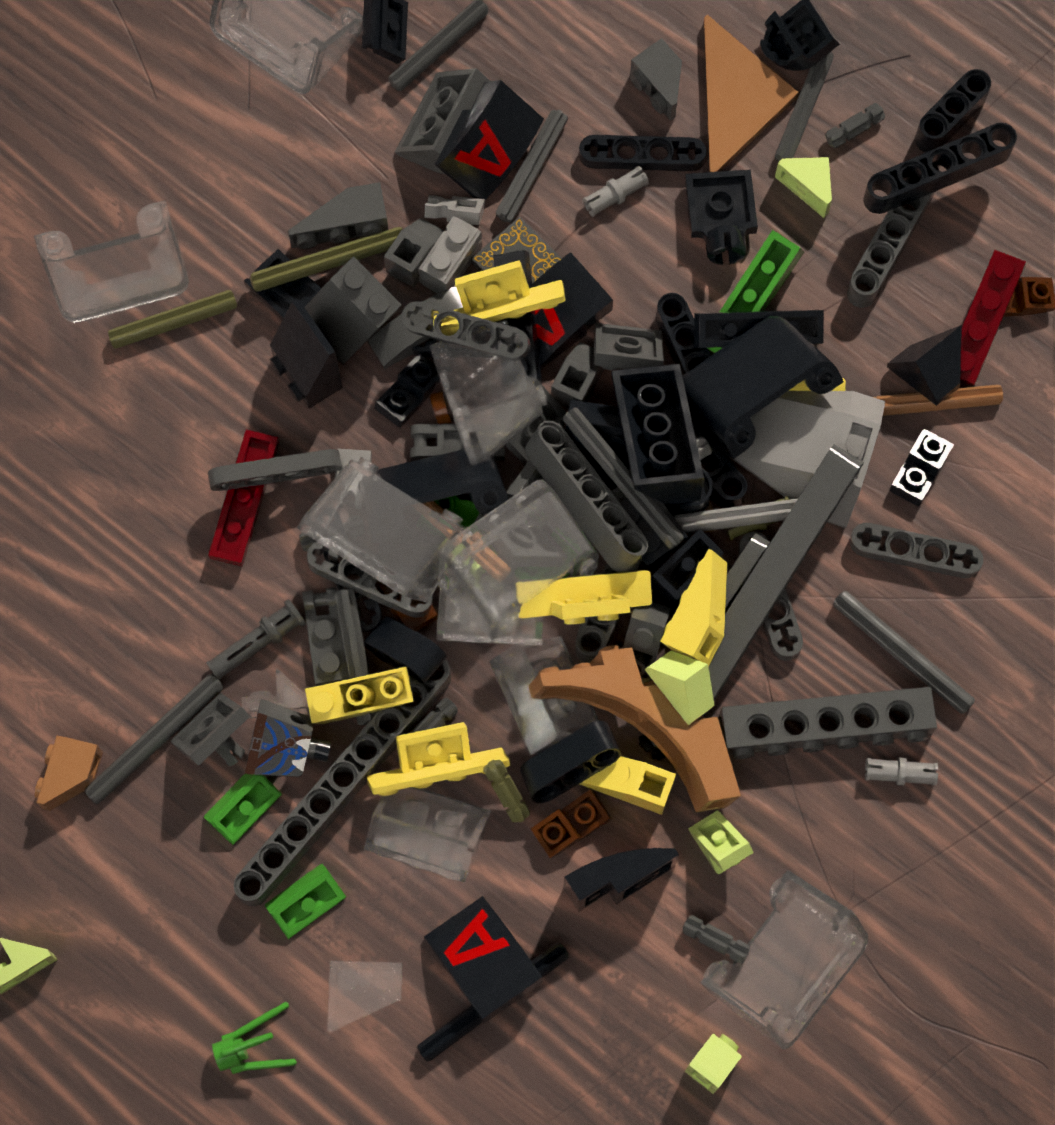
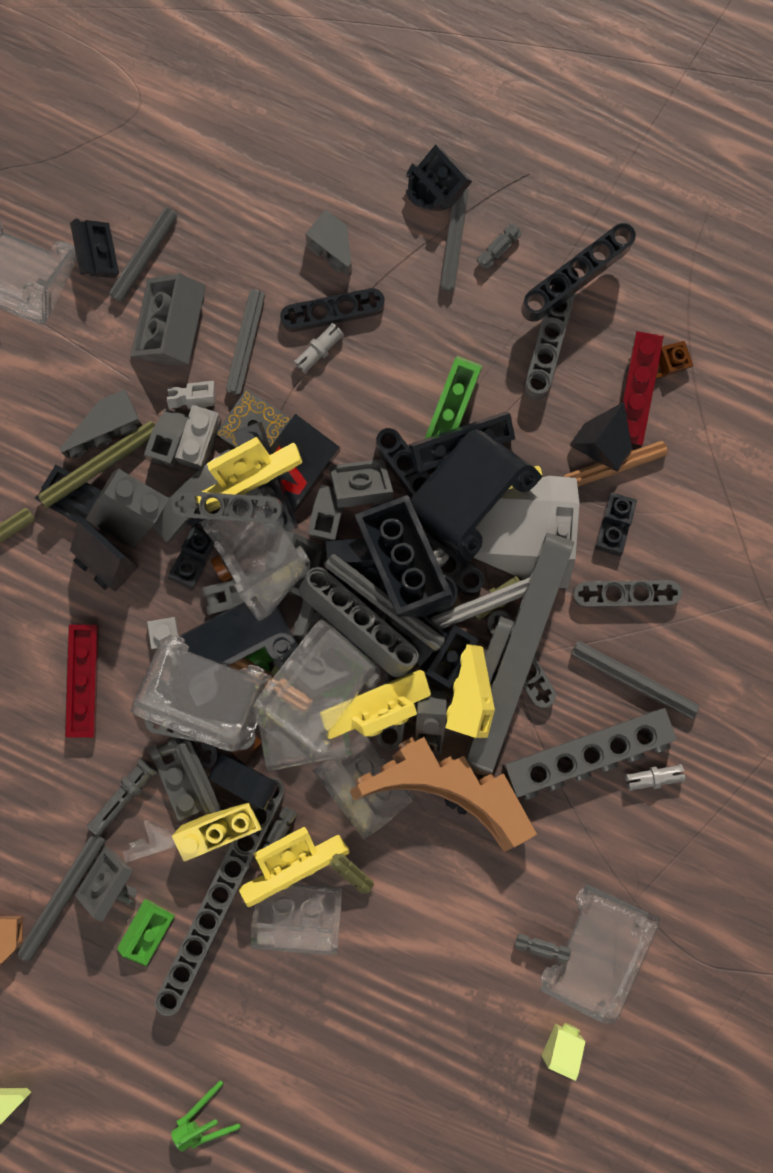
camera: 20 degrees left, 10 degrees up
(274, 470) = (100, 656): dark grey beam -> none
(283, 742) = (165, 879): torso -> none
(305, 901) = (214, 997): bright green slope -> none
(361, 989) = (276, 1057): clear wing -> none
(469, 1019) = (381, 1041): black axle -> none
(484, 959) = (366, 1012): black slope -> none
(489, 139) = (205, 331): black slope -> none
(570, 761) = (396, 838): black beam -> none
(571, 824) = (408, 883): reddish brown slope -> none
(618, 875) = (456, 921): black slope -> none
(634, 783) = (438, 840): light yellow slope -> none
(684, 684) = (471, 757): yellowish green slope -> none
(720, 842) = (529, 871): yellowish green slope -> none
(722, 212) = (408, 346): black plate -> none
(740, 95) = (400, 241): medium nougat tile -> none
(808, 180) = (473, 303): yellowish green slope -> none
(957, 98) = (577, 204): black beam -> none

